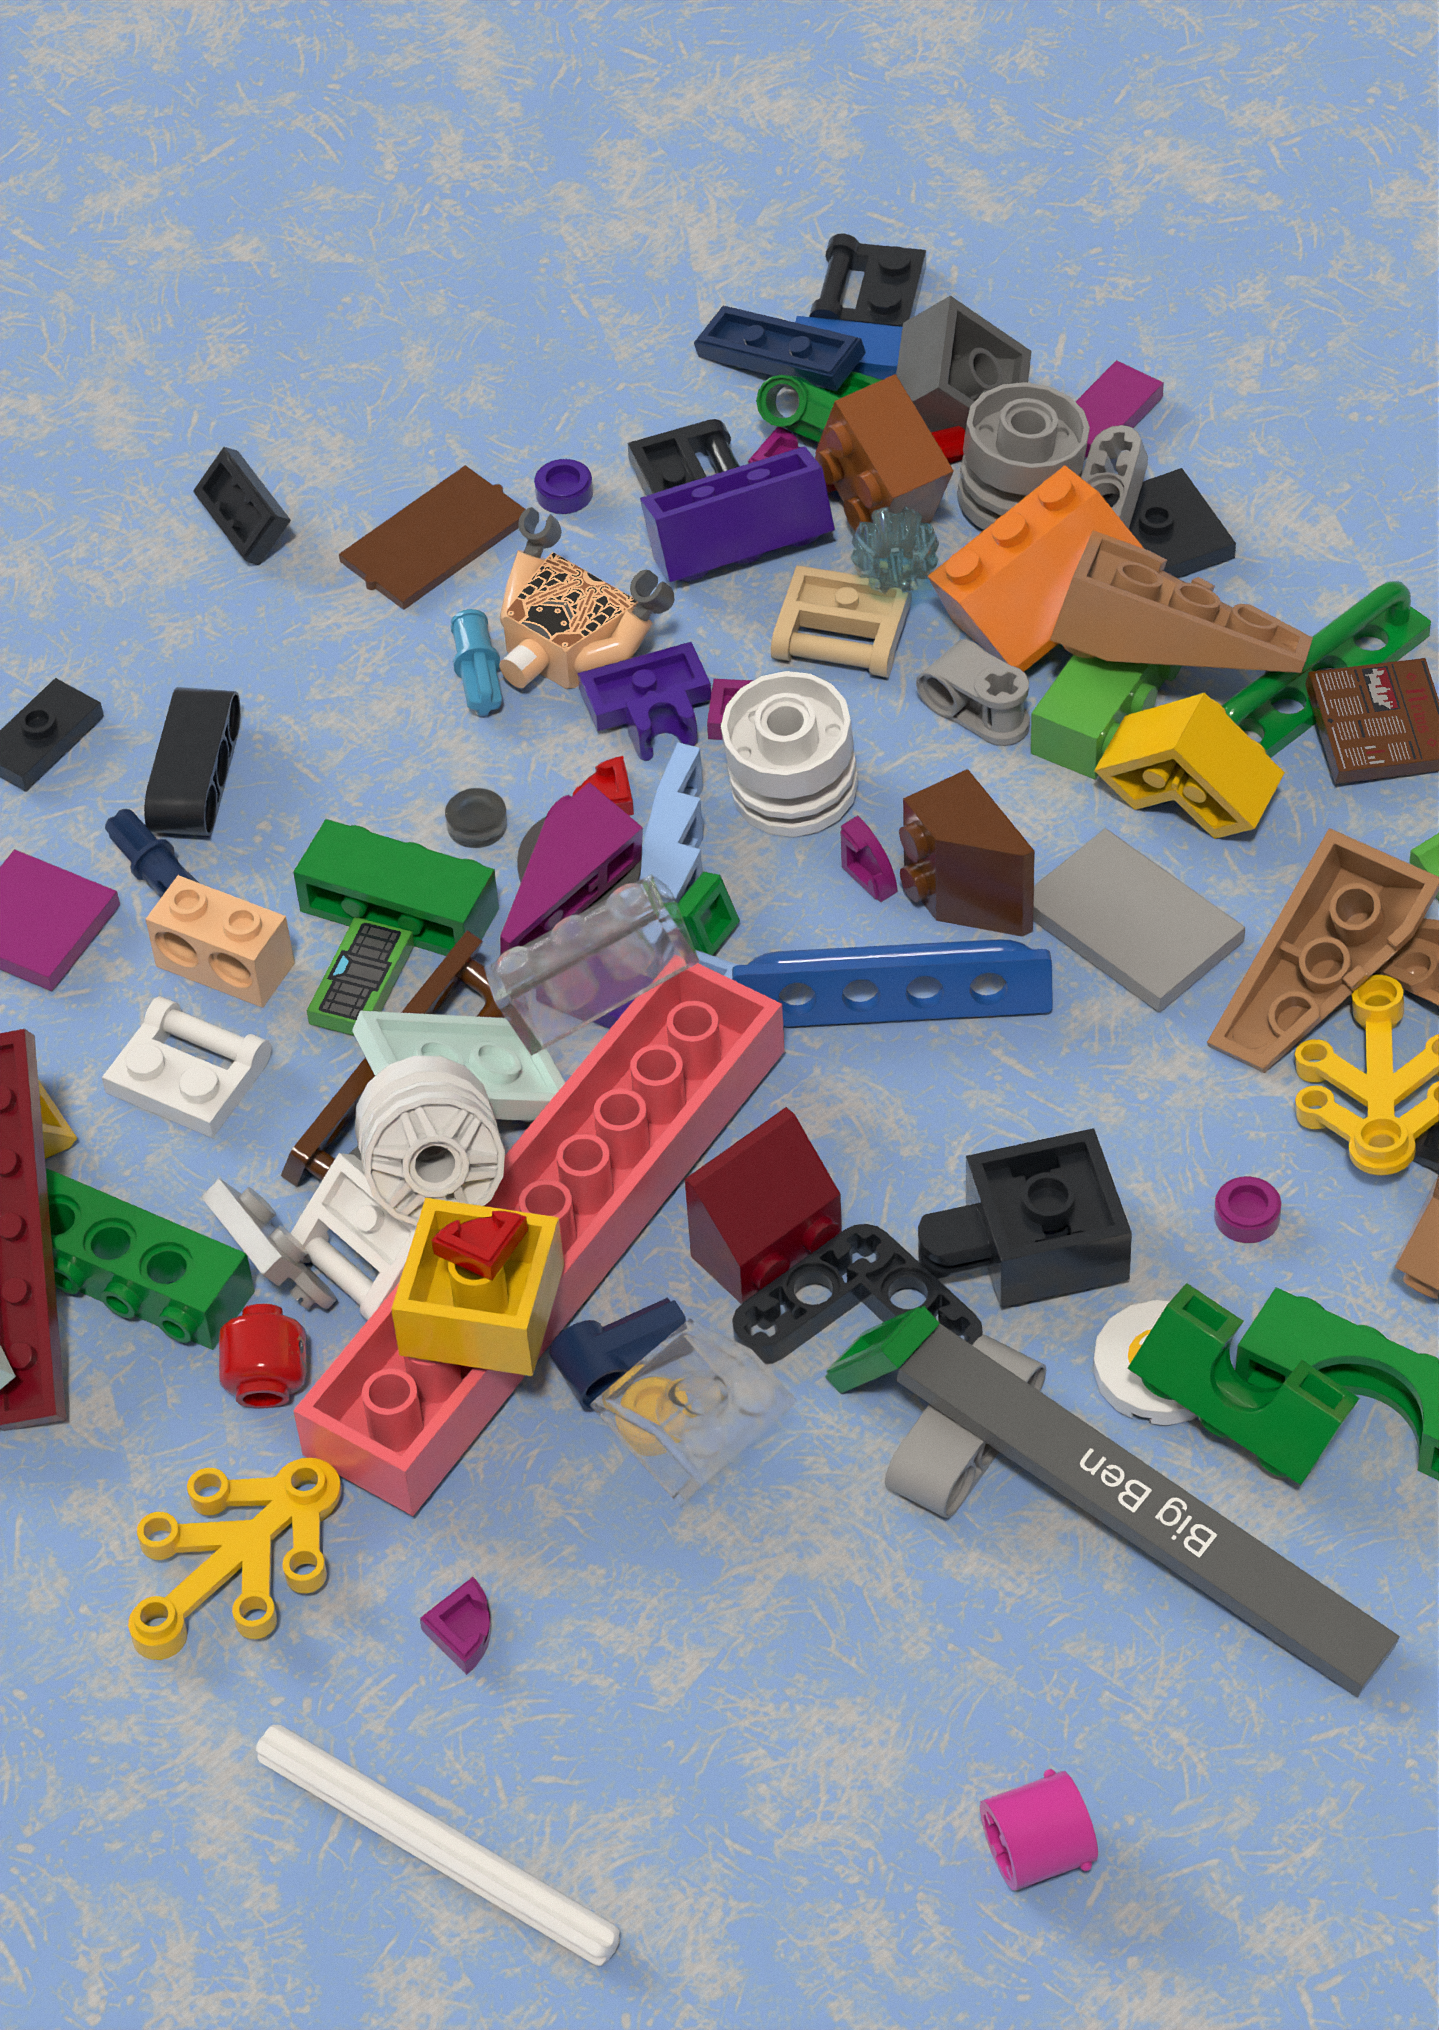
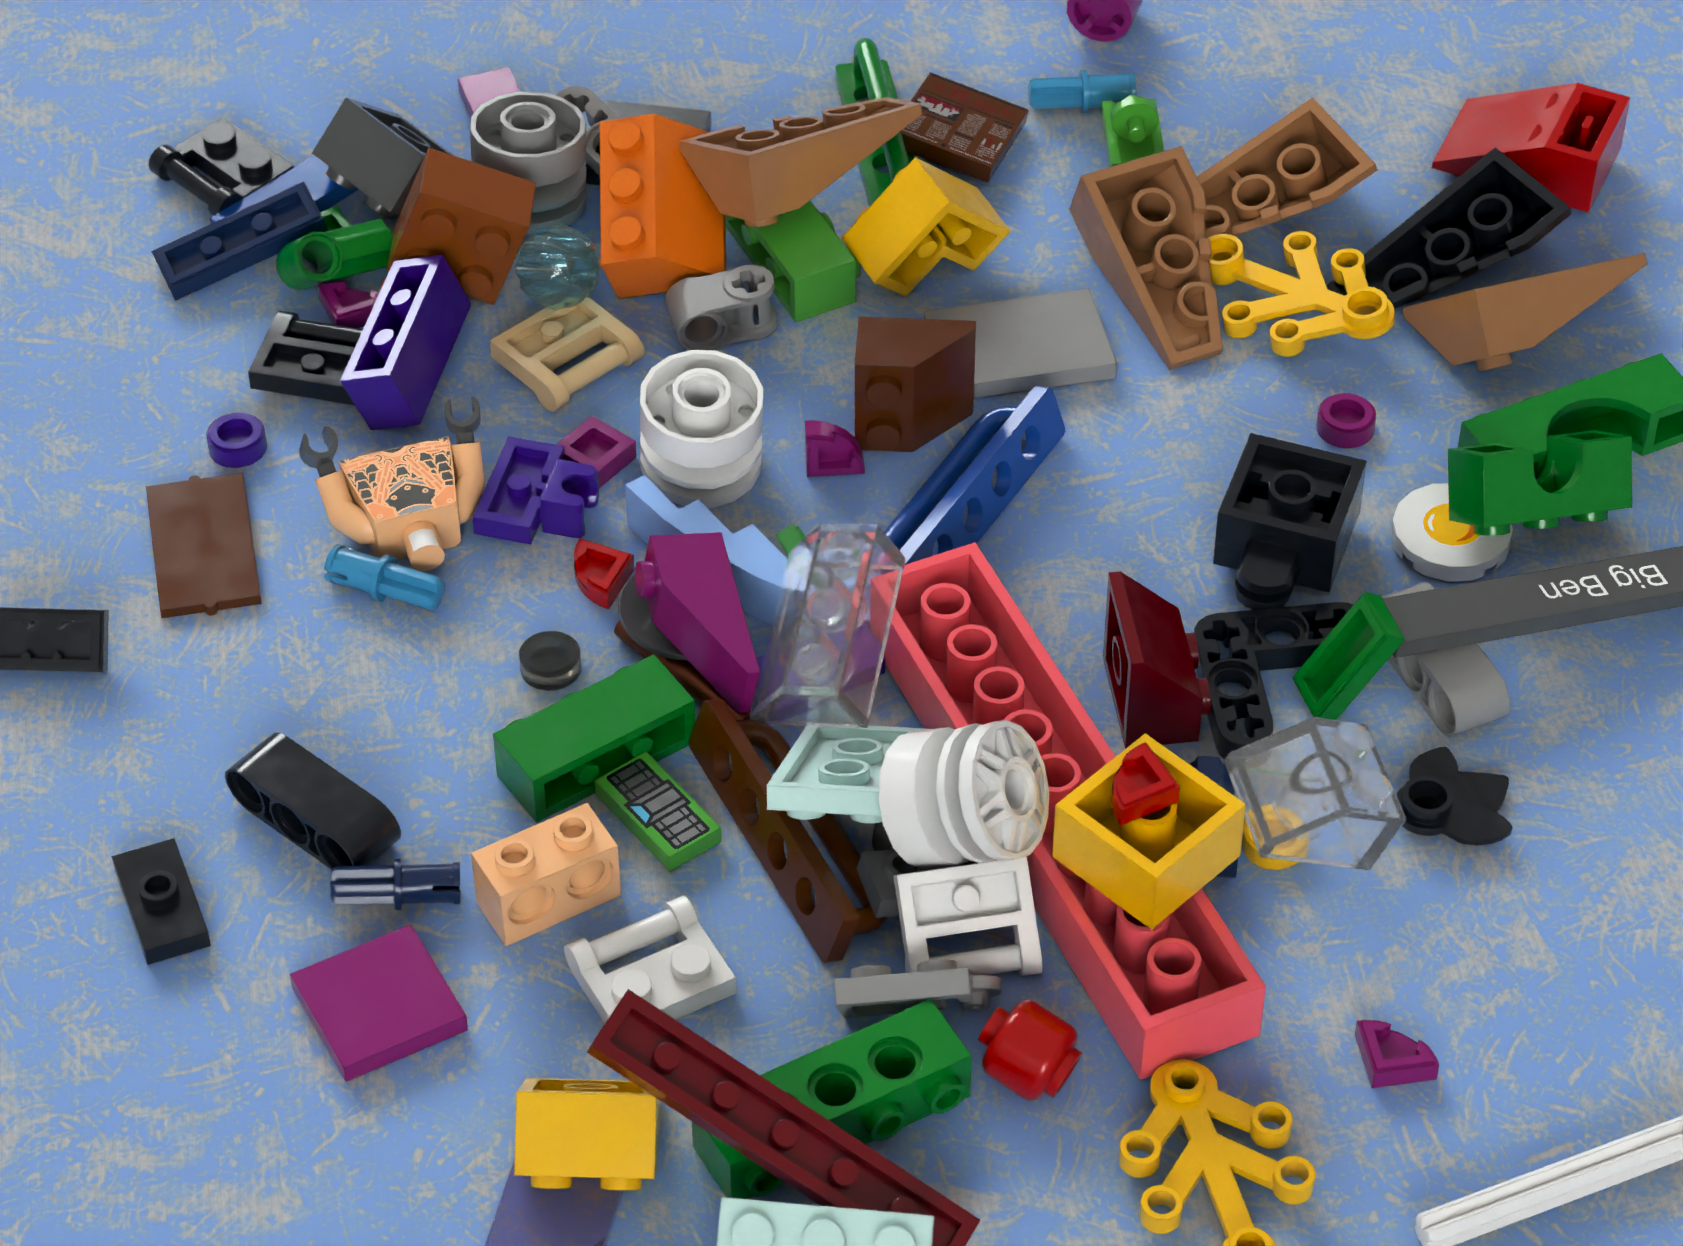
camera: 60 degrees left, 5 degrees down
(810, 1530) = (1453, 801): none -> black plate

